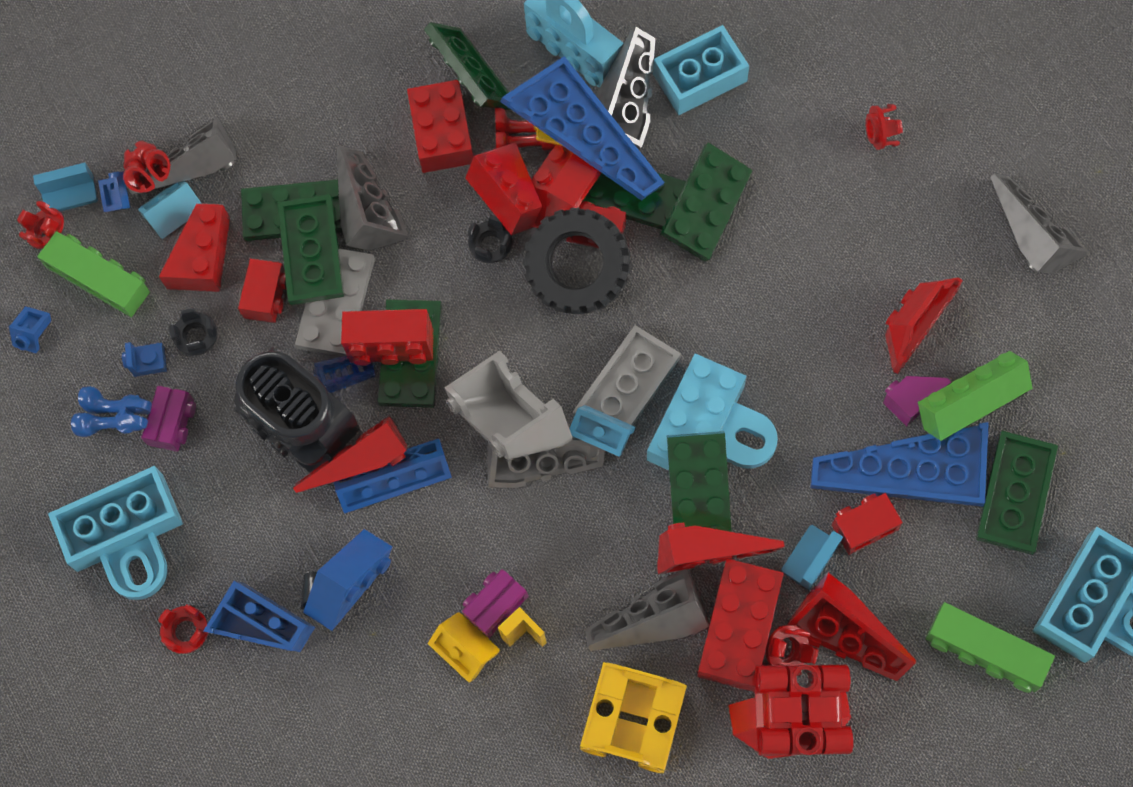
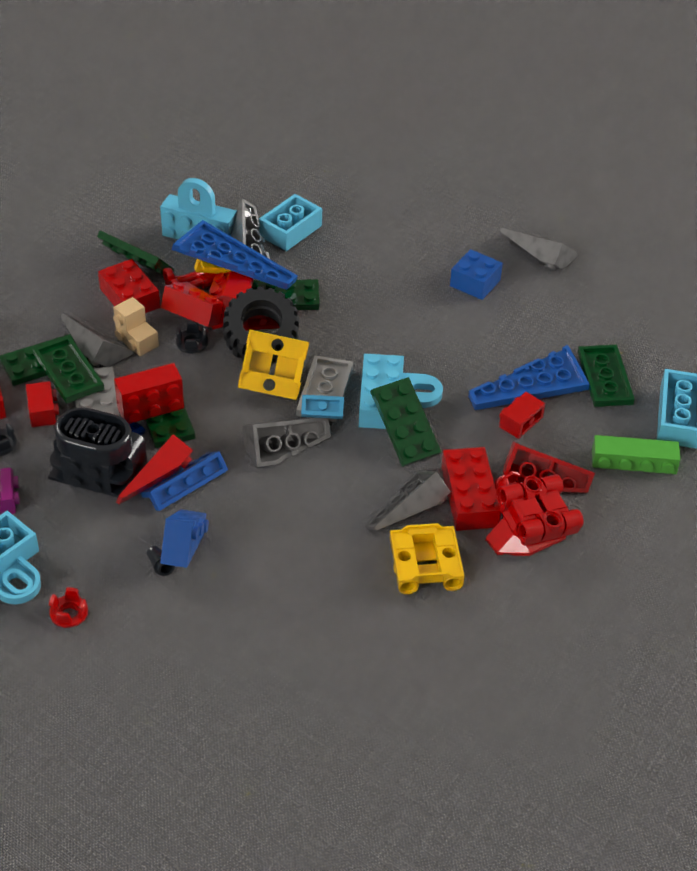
camera: 30 degrees left, 25 degrees down
(257, 619) = (127, 582): blue wedge -> none
(418, 197) = (133, 328): none -> tan brick
(463, 646) = (283, 559): yellow panel -> none
(494, 602) = (295, 526): magenta brick -> none
(507, 411) = (240, 408): light grey windscreen -> none
(517, 625) = (325, 526): yellow panel -> none
(546, 327) = (259, 359): none -> yellow piece
(692, 545) = (424, 448): red wedge -> none
(706, 202) = (328, 285): dark green plate -> none
(811, 556) = (497, 442): dark azure panel -> none
(881, 127) = (420, 227): red piece -> none
(904, 396) = (514, 345): magenta slope -> none
(916, 318) = (494, 306): red wedge -> none
(919, 248) = (476, 274): none -> blue piece
(975, 395) = (552, 330): bright green brick -> none

